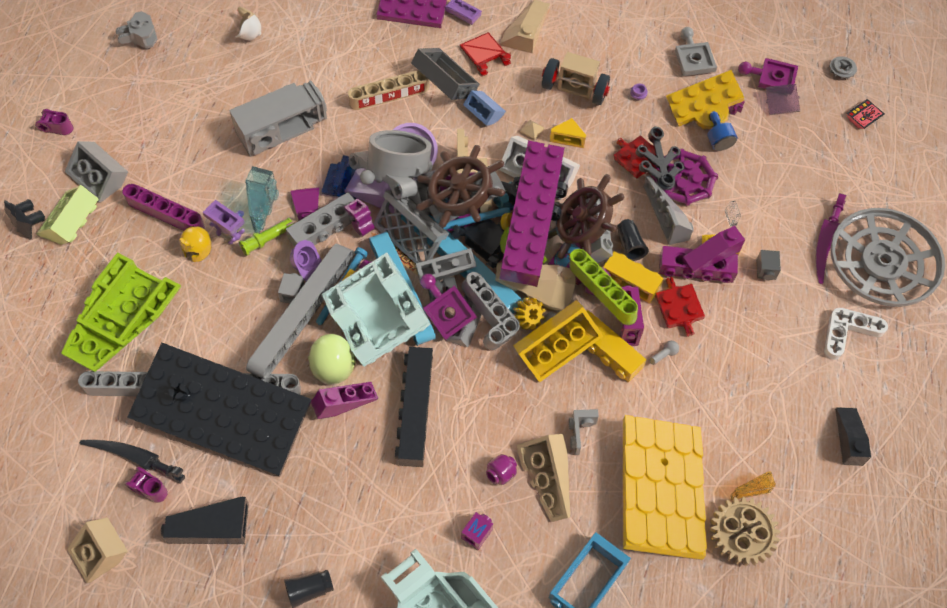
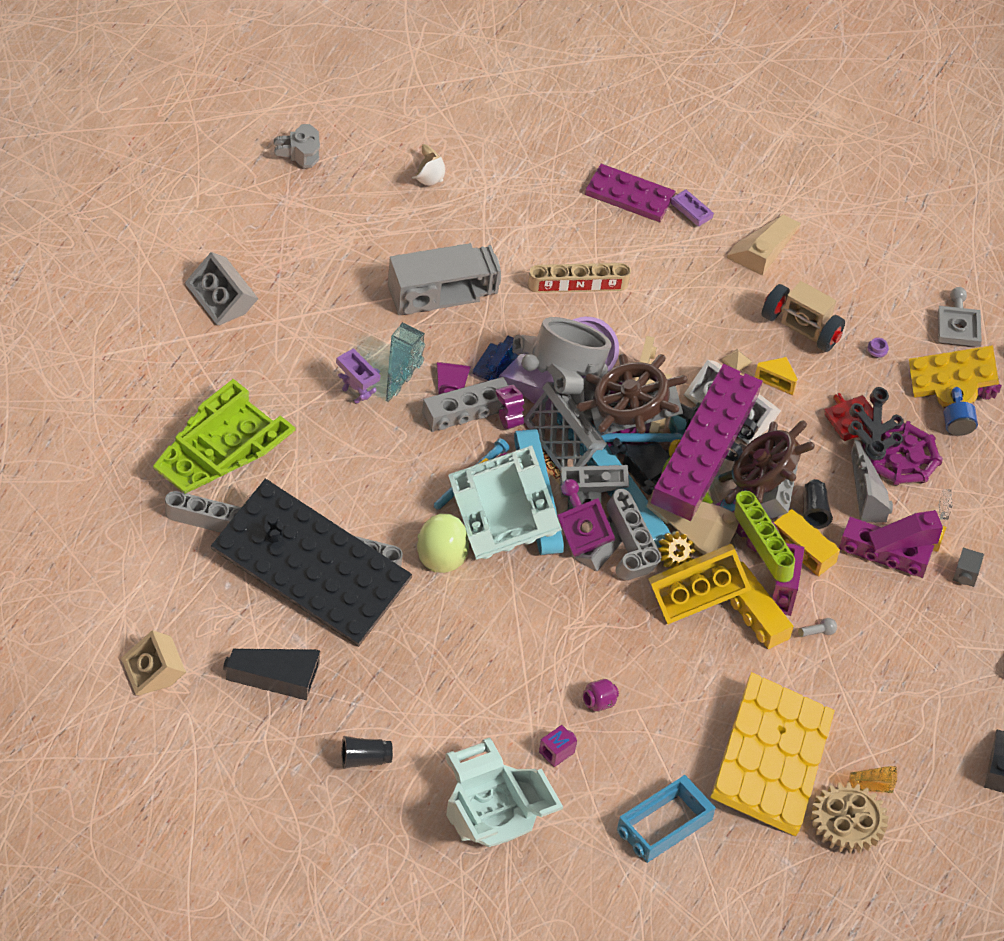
camera: 10 degrees right, 10 degrees down
(20, 220) = (128, 319): black connector -> none
(54, 122) = (185, 226): magenta piece -> none
(68, 215) = (182, 330): yellowish green slope -> none
(138, 456) = (213, 590): black sword -> none
(144, 483) = (217, 618): magenta piece -> none
(153, 205) = (289, 348): magenta beam -> none
(196, 240) = (319, 387): yellow helmet -> none
(258, 240) = (390, 405): lime pin -> none
(290, 287) = (414, 463): light grey brick -> none
(299, 312) = (420, 486): light grey beam -> none
(305, 258) = (439, 439): medium lavender piece -> none
(341, 399) = (441, 586): magenta slope -> none
(415, 407) = (523, 612): black brick -> none
(444, 73) = (650, 274): dark grey window -> none
(483, 50) = (703, 259): flag -> none
(483, 107) = (686, 322): medium blue brick -> none
(548, 468) = (651, 704): tan wedge -> none
(581, 417) = (705, 668): light grey bracket -> none
(680, 306) = (851, 586): red plate -> none

